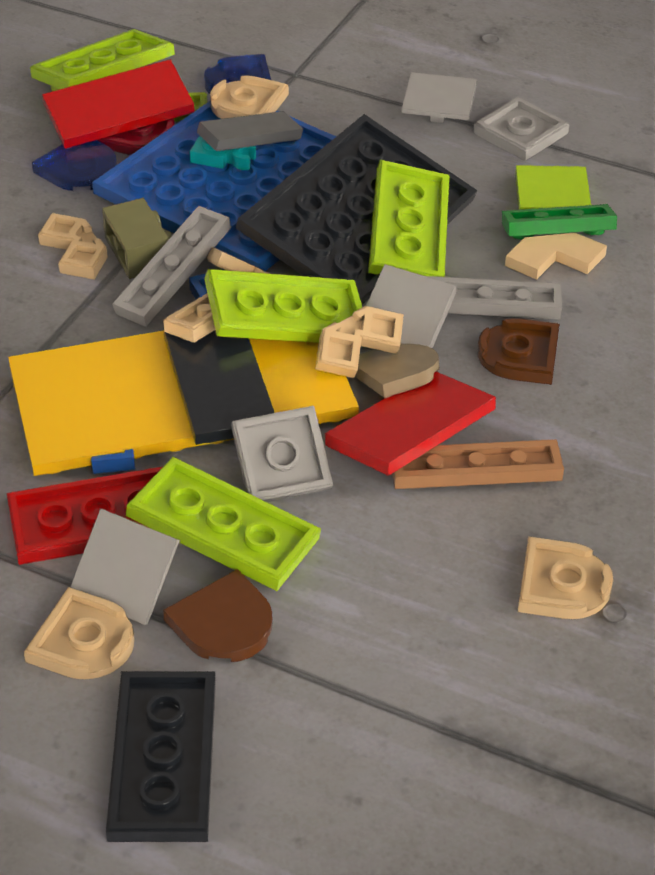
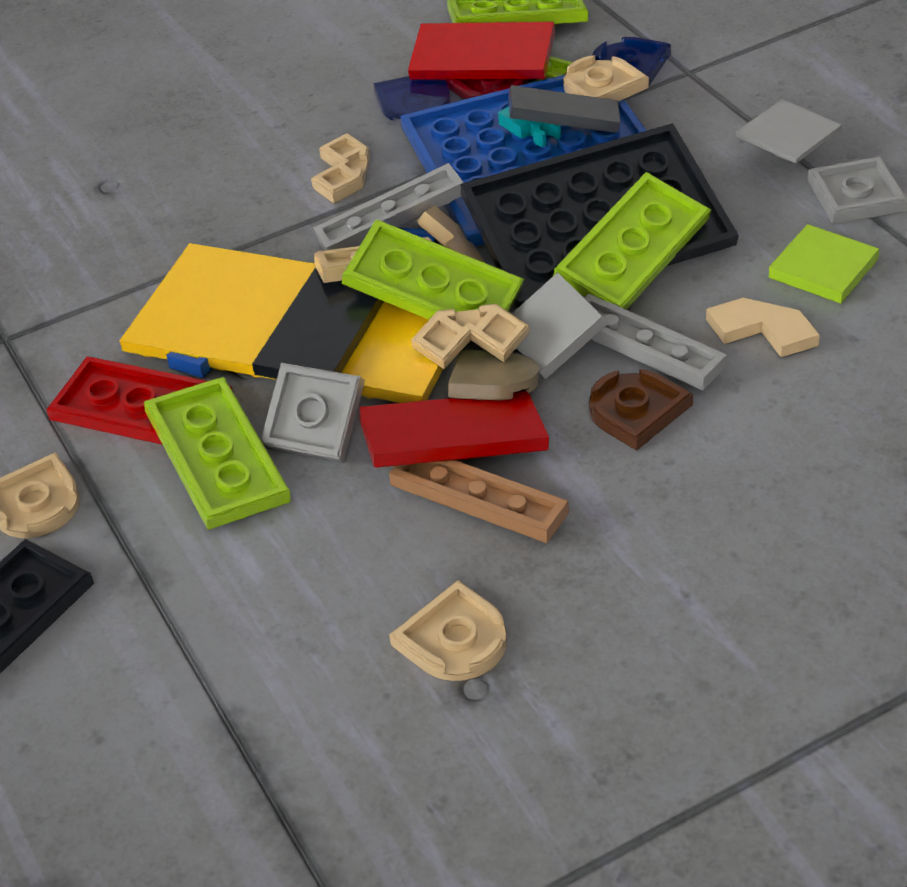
camera: 40 degrees right, 0 degrees up
(125, 564) = (100, 452): light grey piece -> none
(133, 234) = (388, 167): olive brick -> none
(223, 619) = (144, 533): reddish brown tile -> none
(559, 220) = (826, 301): green plate -> none

